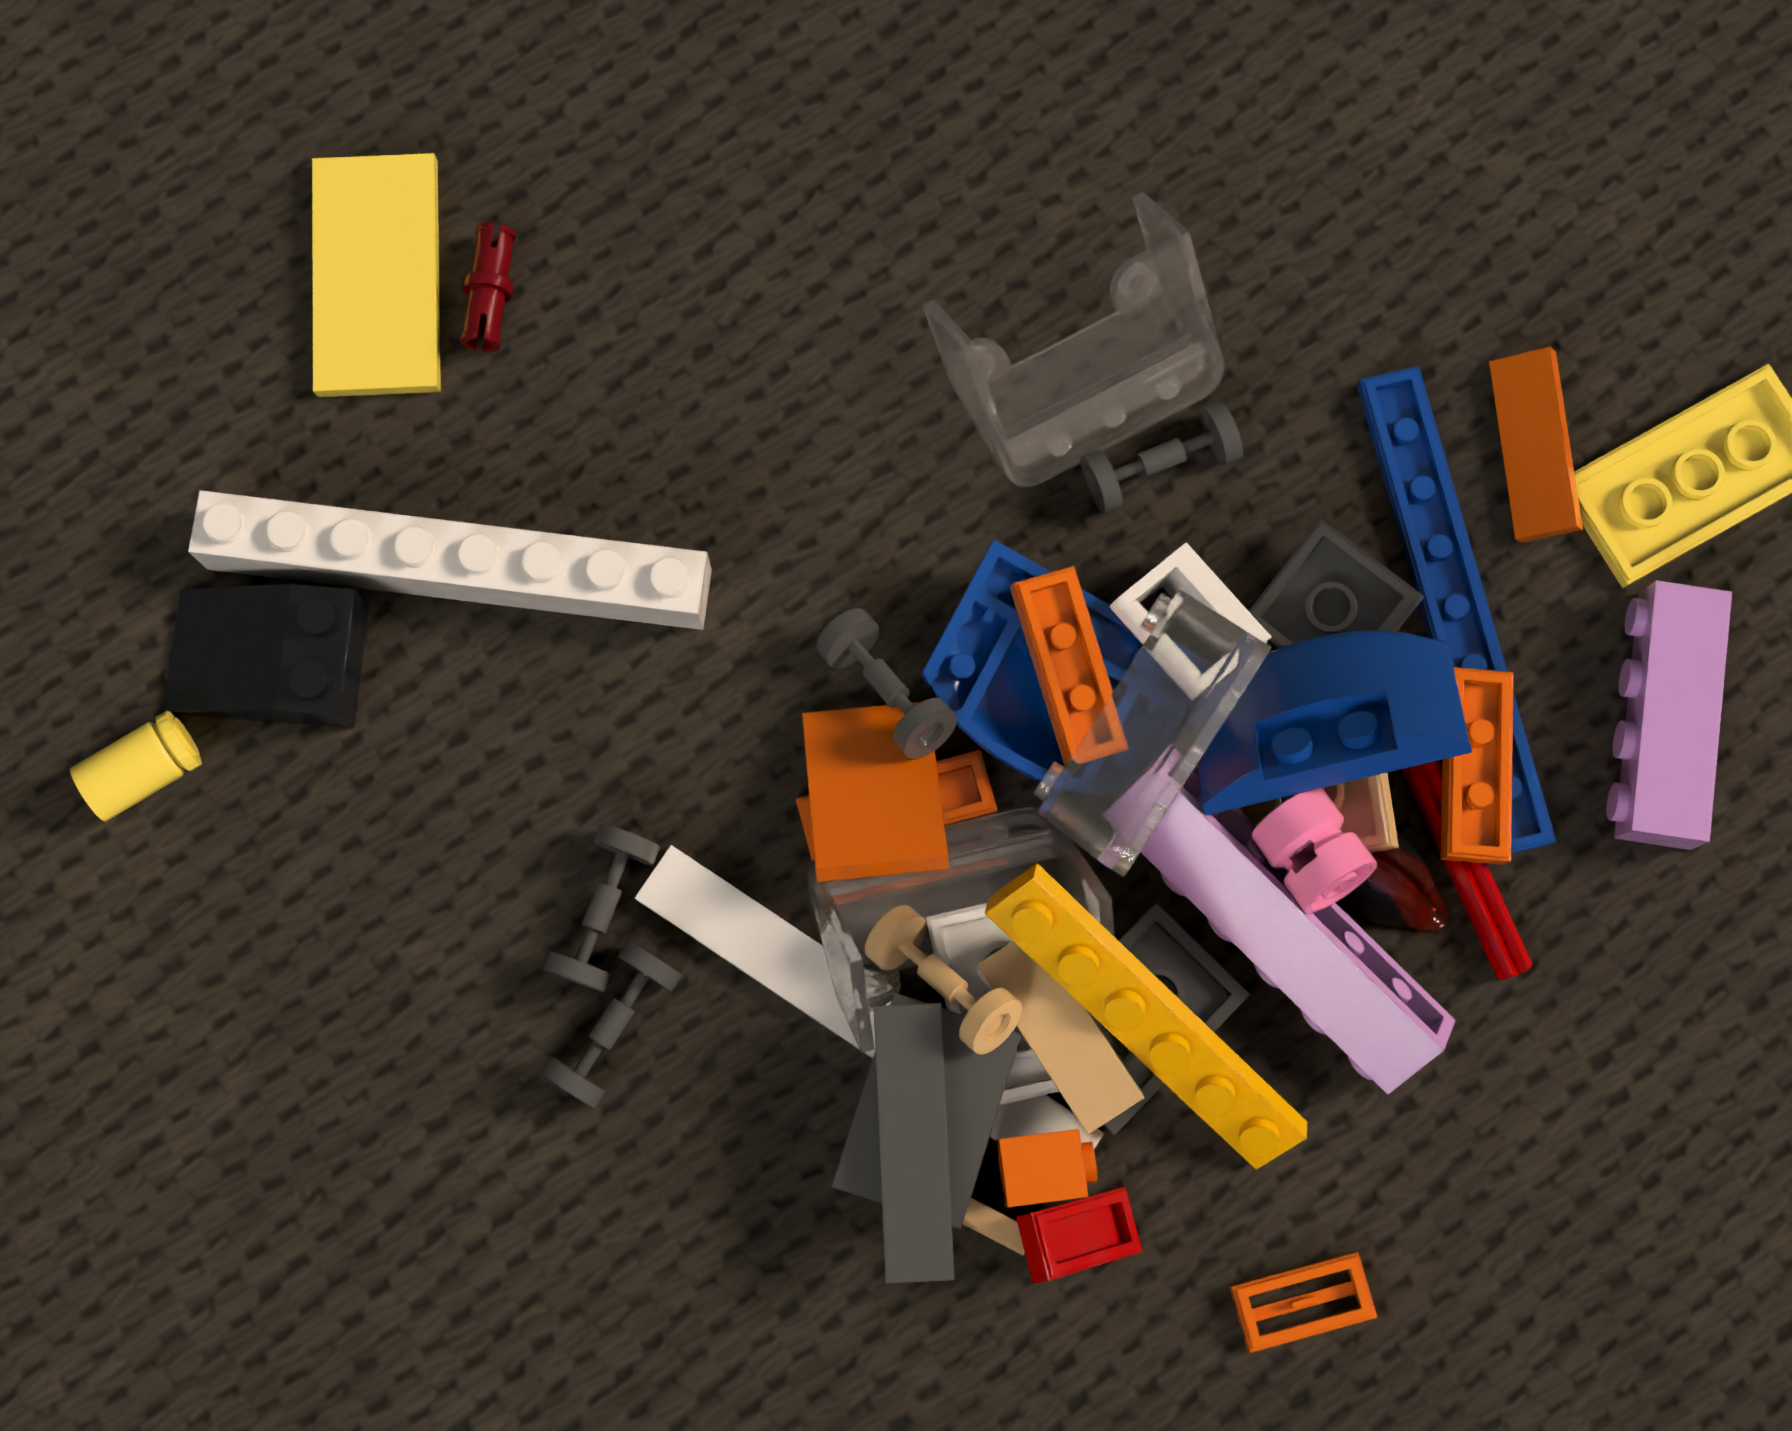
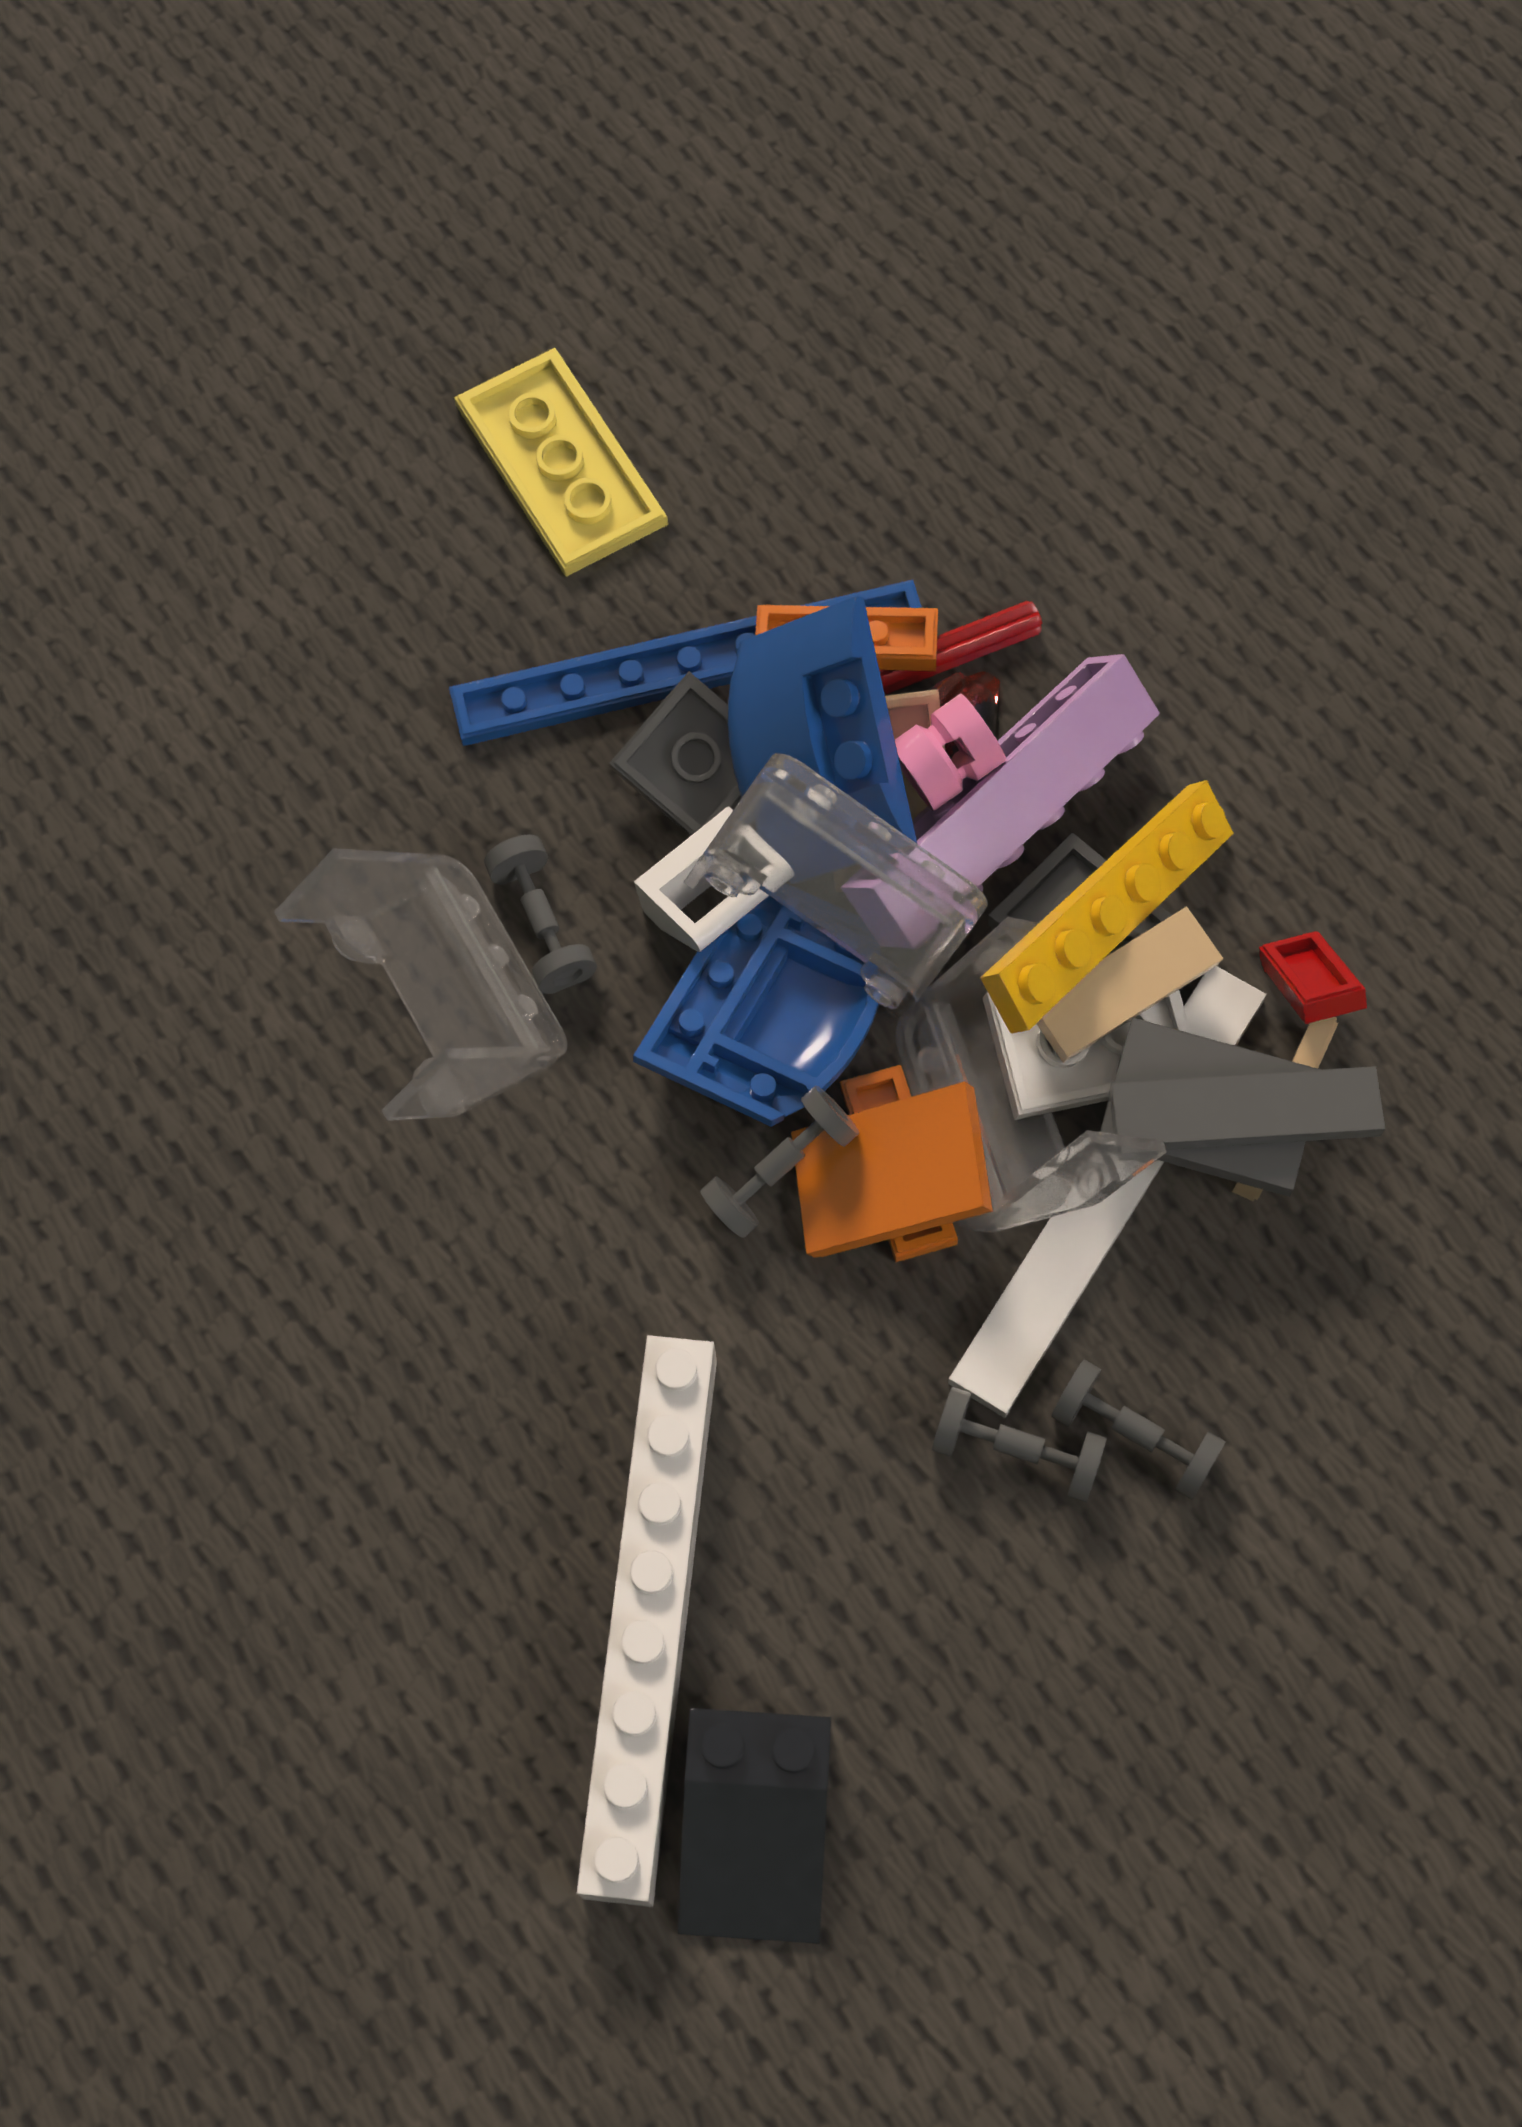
camera: 85 degrees left, 10 degrees down
(136, 766) = (884, 1961): light yellow piece -> none
(375, 275) = (311, 1730): light yellow tile -> none
(488, 287) = (334, 1599): dark red pin -> none
(989, 1019) = (1086, 1085): tan wheel -> none
(1045, 1167) = (1255, 1004): orange brick -> none
(1063, 654) = (761, 987): orange tile -> none
(1249, 1316) = (1366, 841): orange tile -> none
(1535, 445) = (530, 587): orange tile -> none
(1671, 715) = (792, 481): lavender brick -> none

